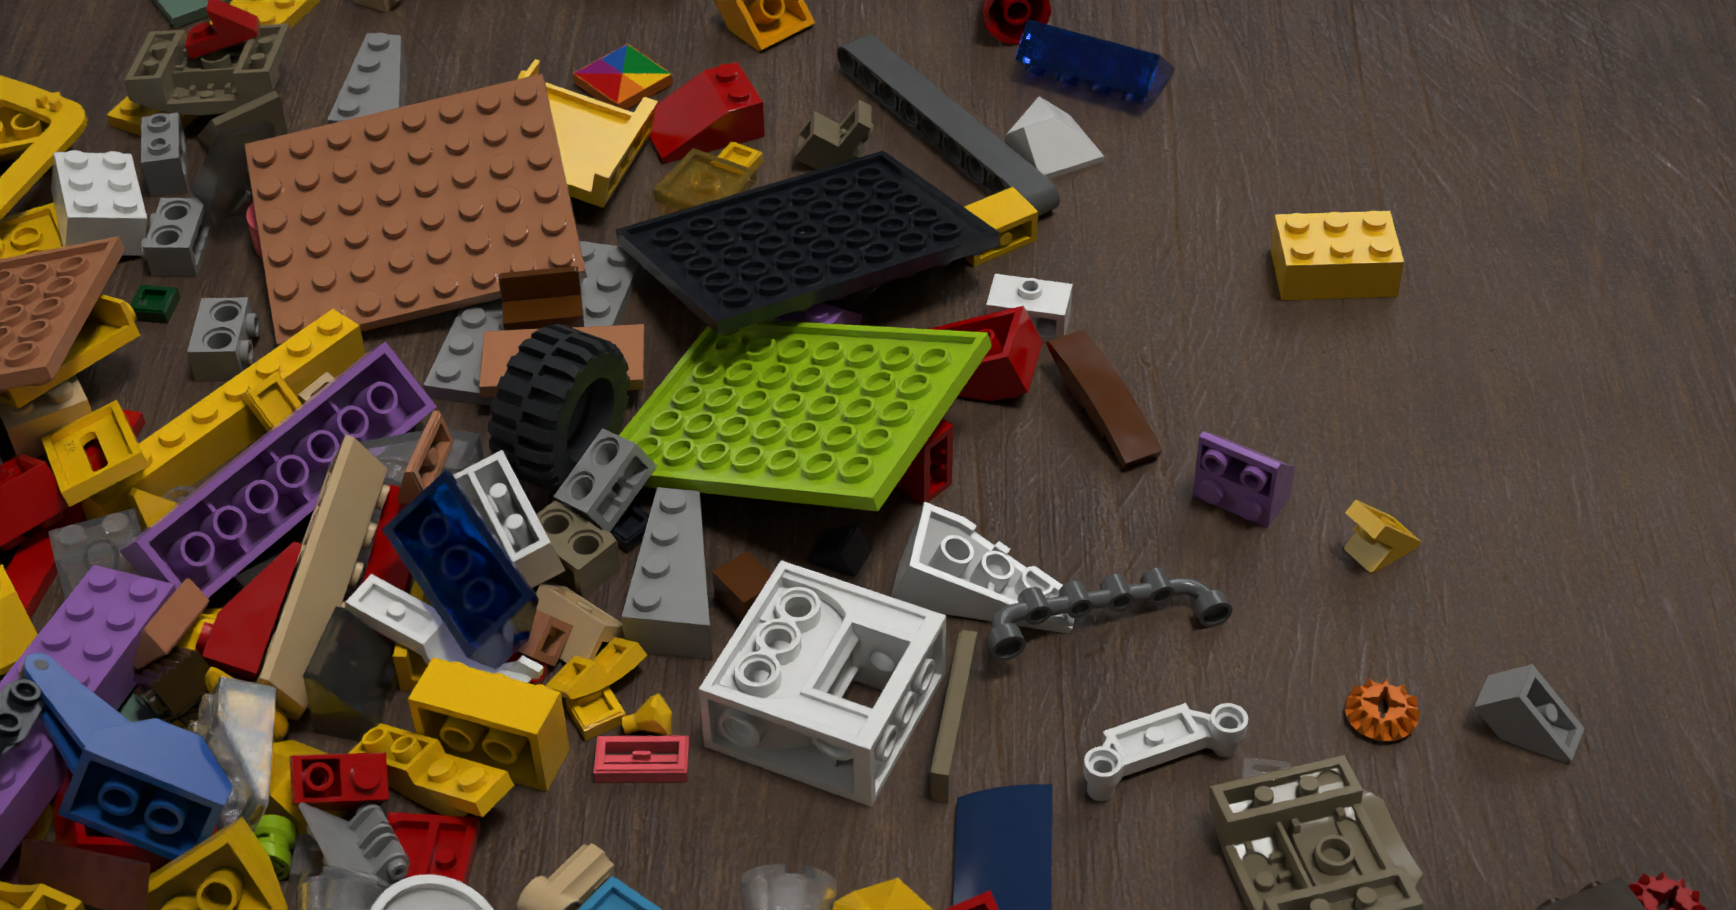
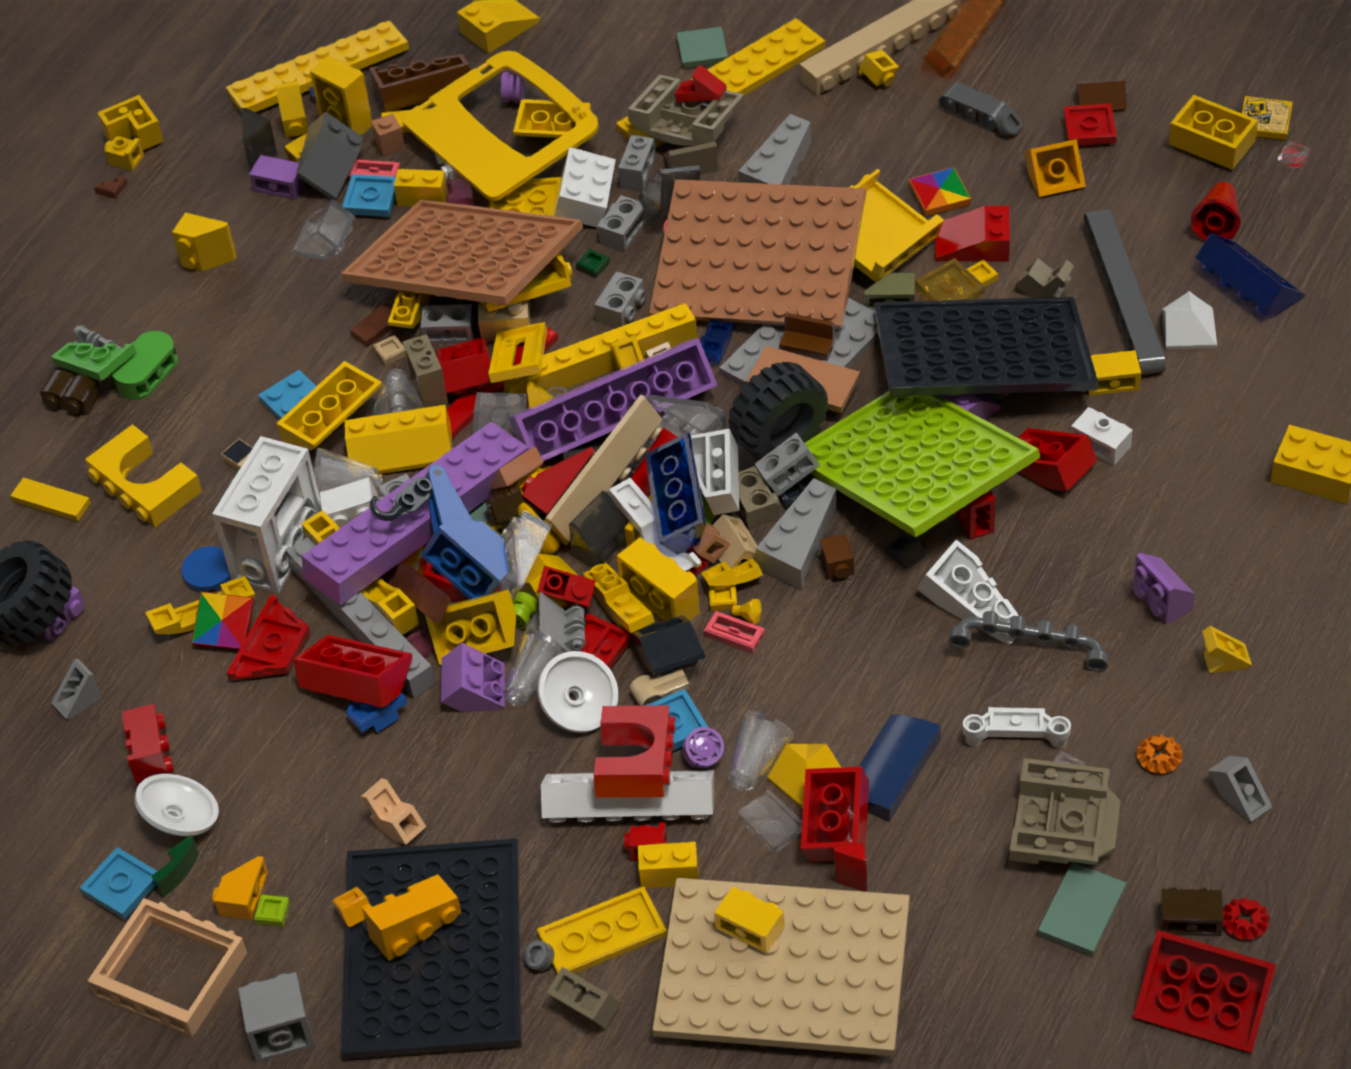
camera: 30 degrees right, 5 degrees up
(403, 340) = (717, 340): none -> clear blue slope
(427, 458) = (686, 419): nougat slope -> none
(554, 815) = (668, 645): none -> black slope
(626, 207) = (891, 288): none -> olive slope
(790, 664) = (848, 609): white piece -> none
(953, 717) = (912, 668): dark tan tile -> none
(1105, 398) = (1111, 510): reddish brown slope -> none

